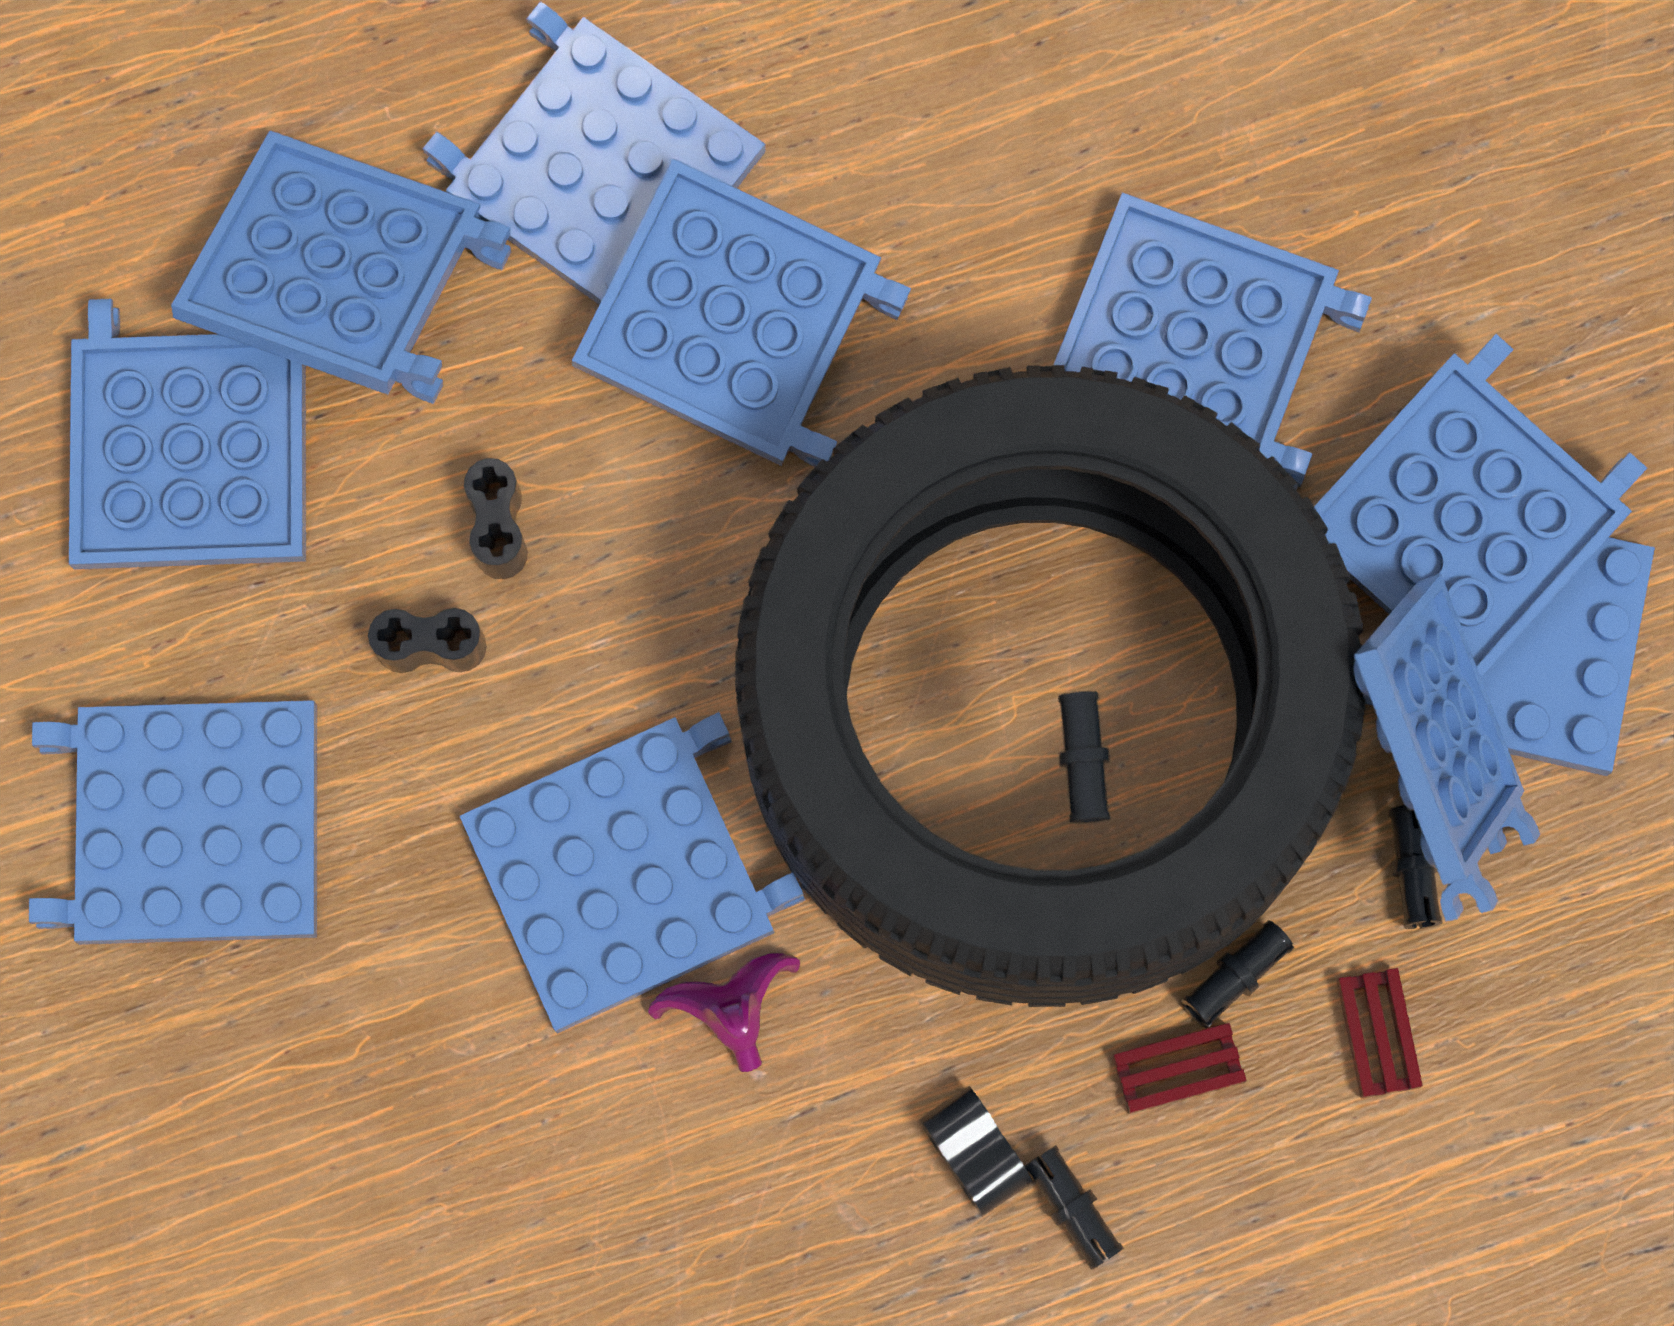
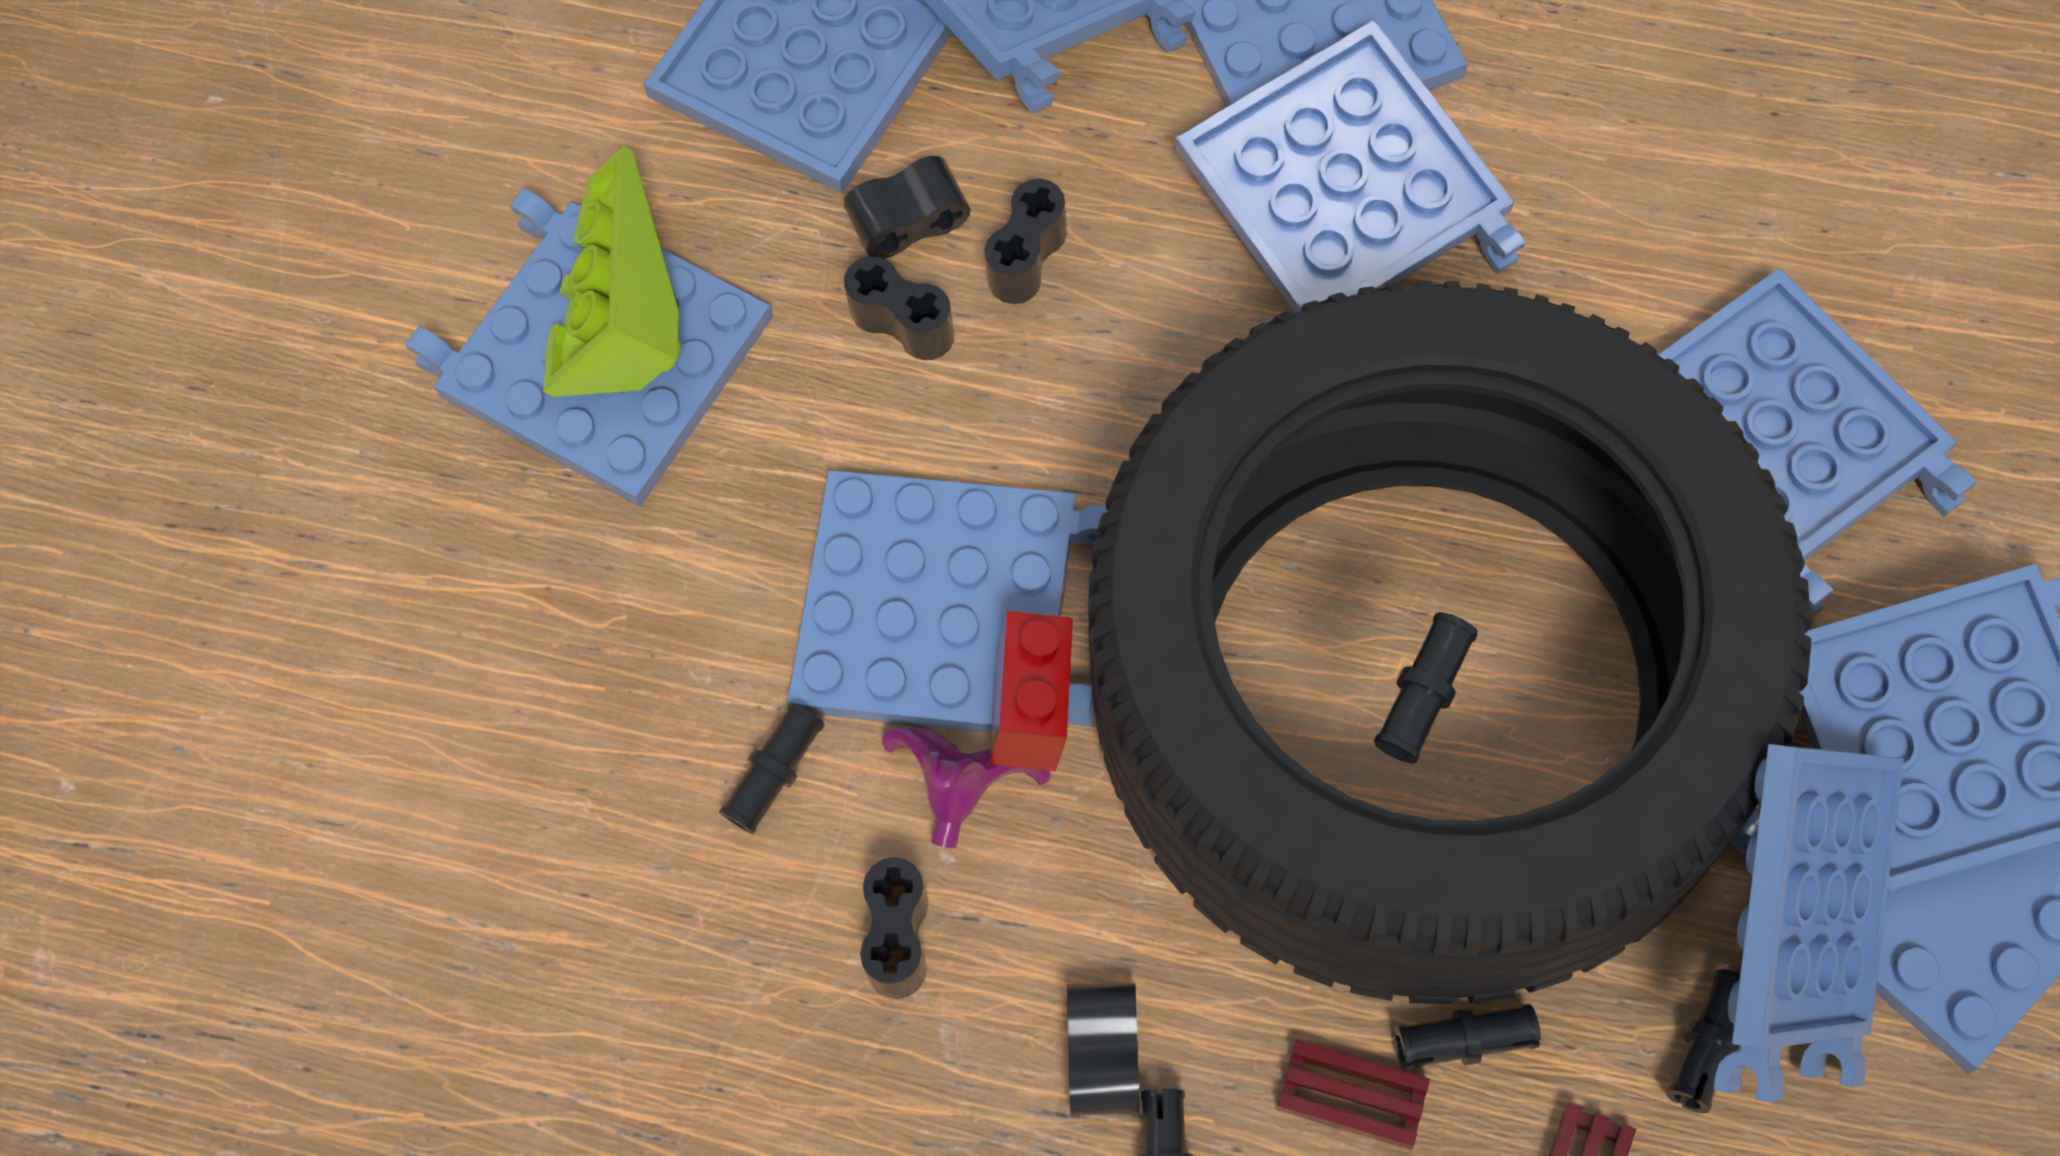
camera: 35 degrees right, 10 degrees down
(196, 784) = (620, 296): none -> lime wedge
(373, 545) = (906, 207): none -> black axle
(577, 1090) = (772, 768): none -> black pin
(754, 910) = (1031, 691): none -> red brick
(758, 1156) = (894, 927): none -> black axle

